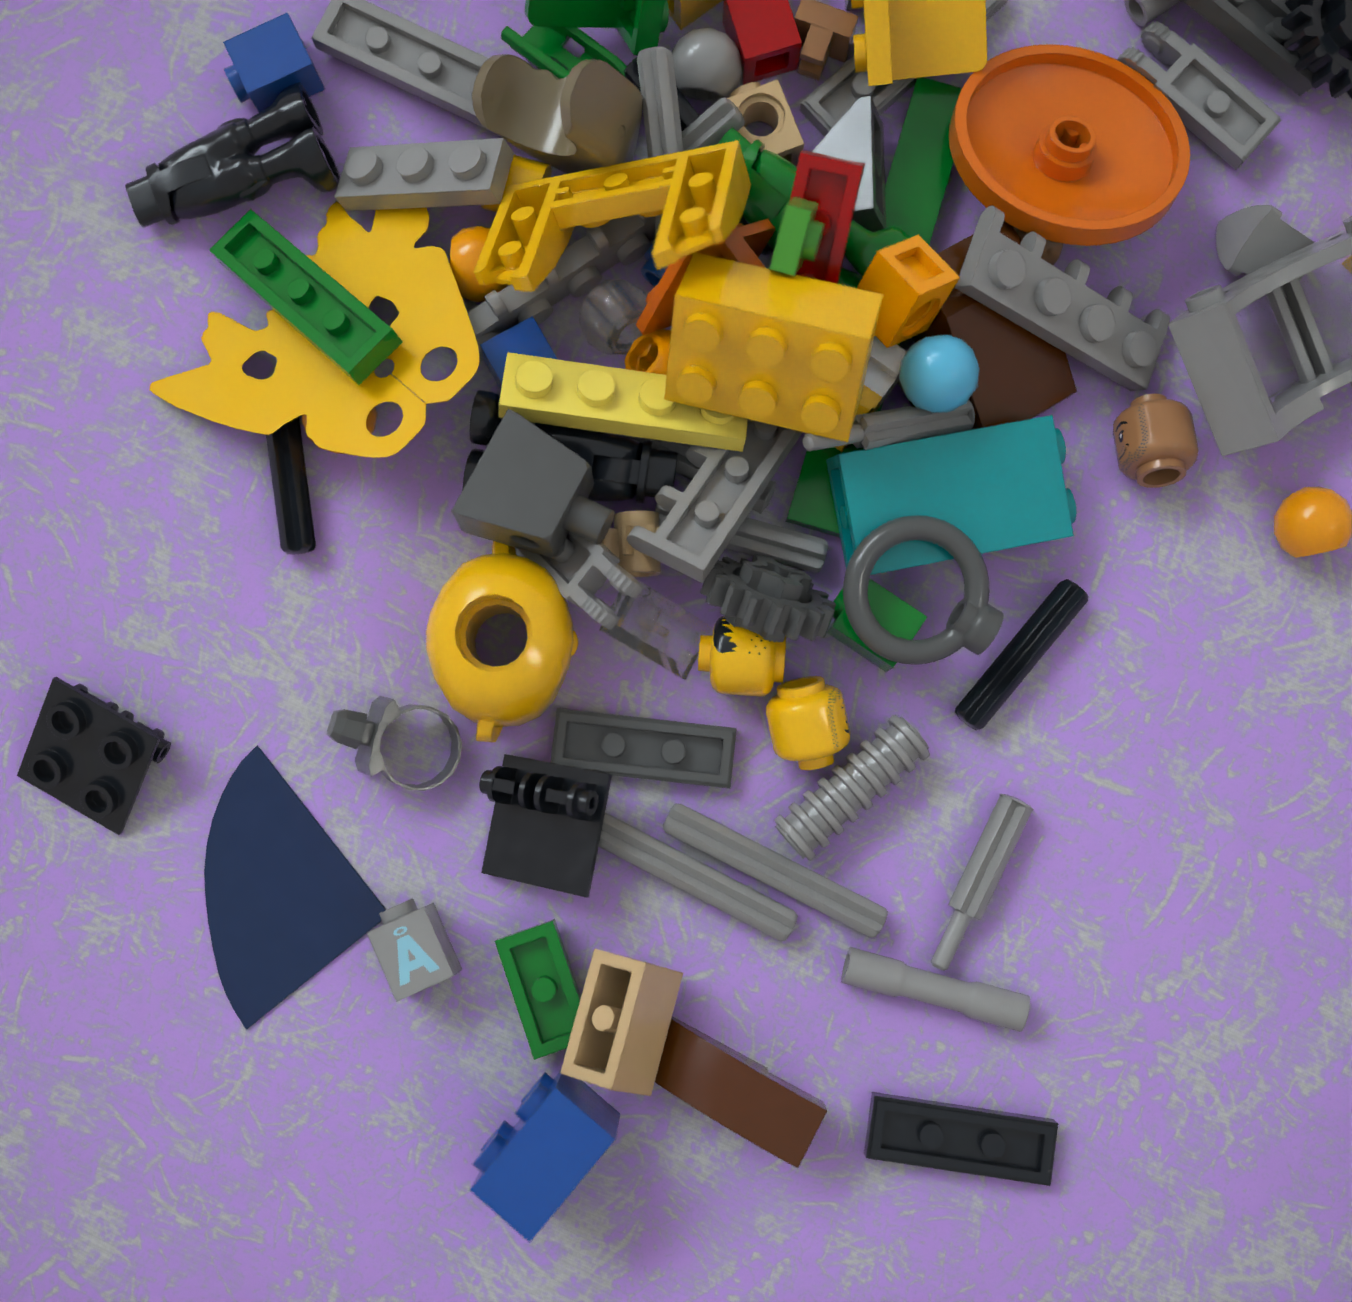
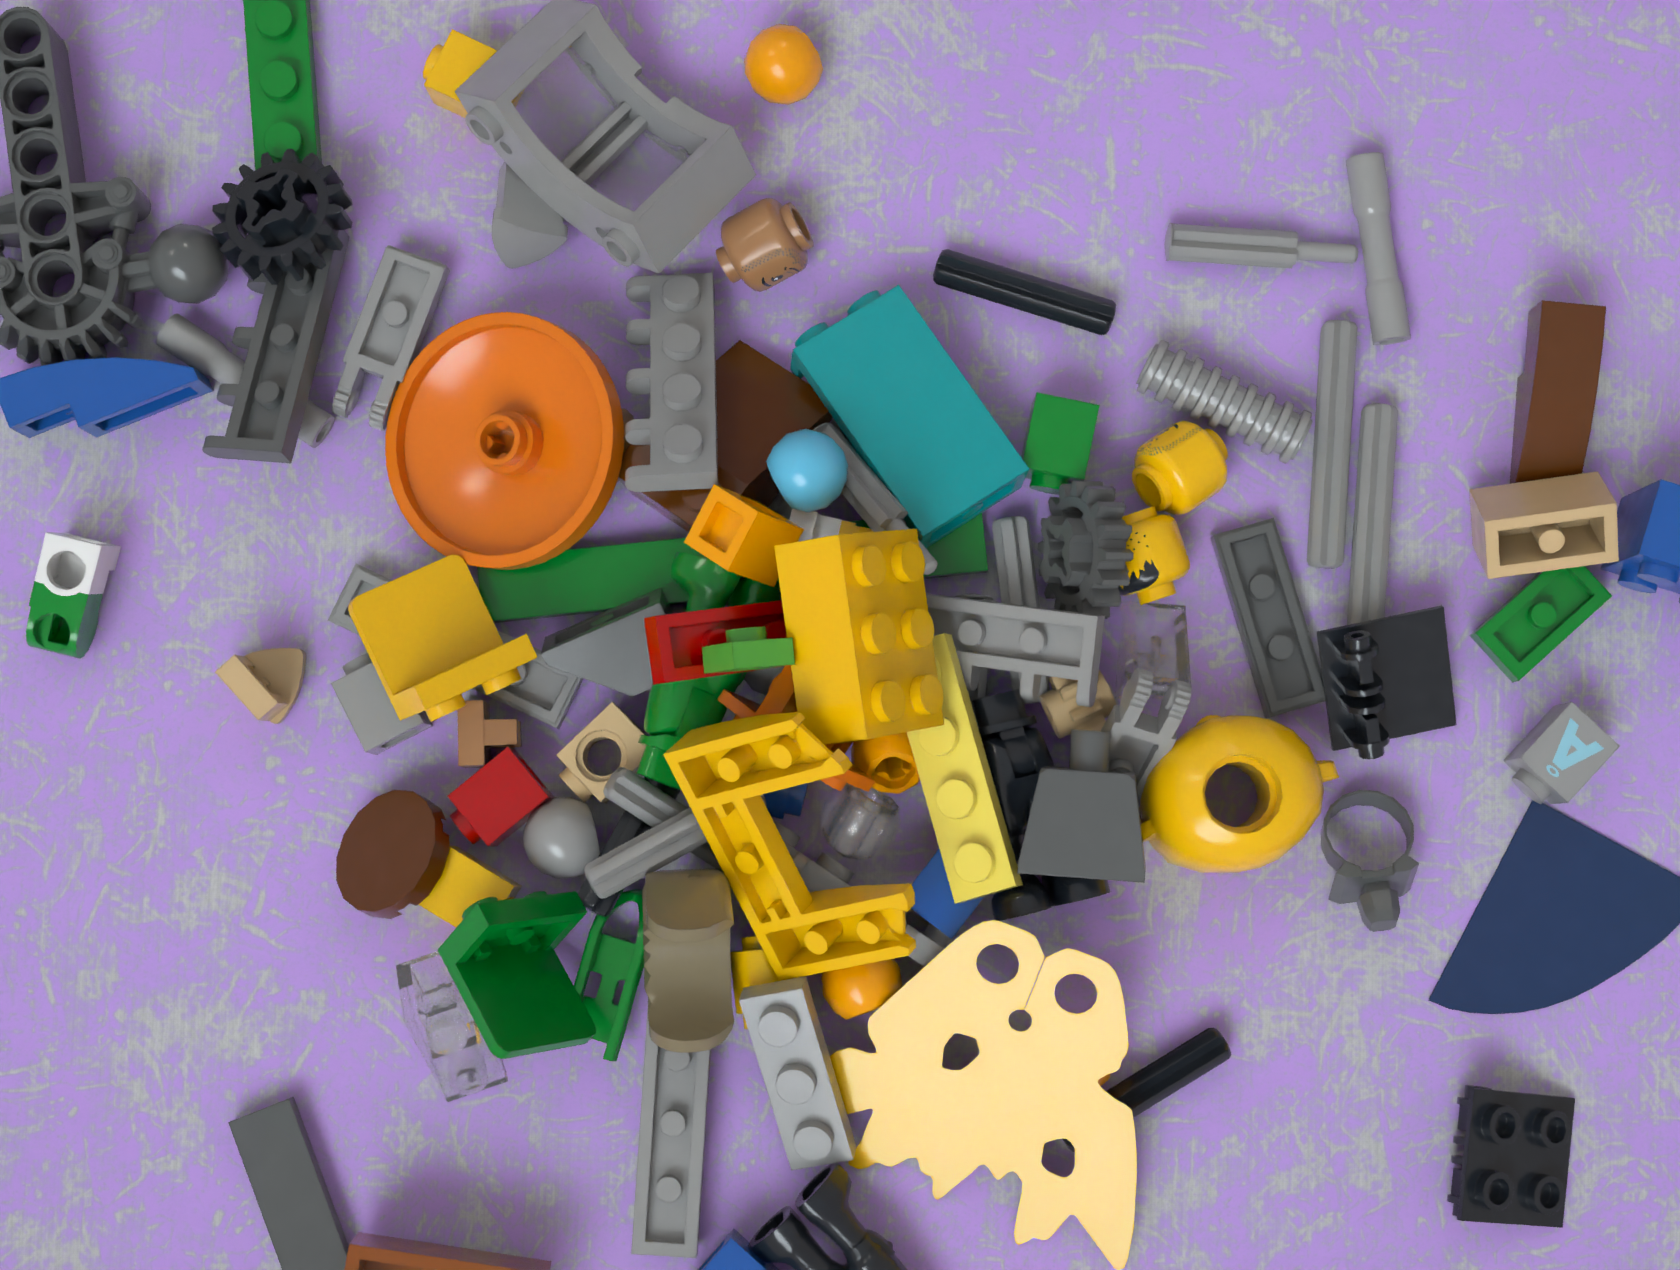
camera: 115 degrees left, 0 degrees up
(306, 297) = (975, 1137): green plate -> none
(961, 1138) = (1504, 171): black tile -> none
(970, 624) = (1024, 348): dark grey piece -> none

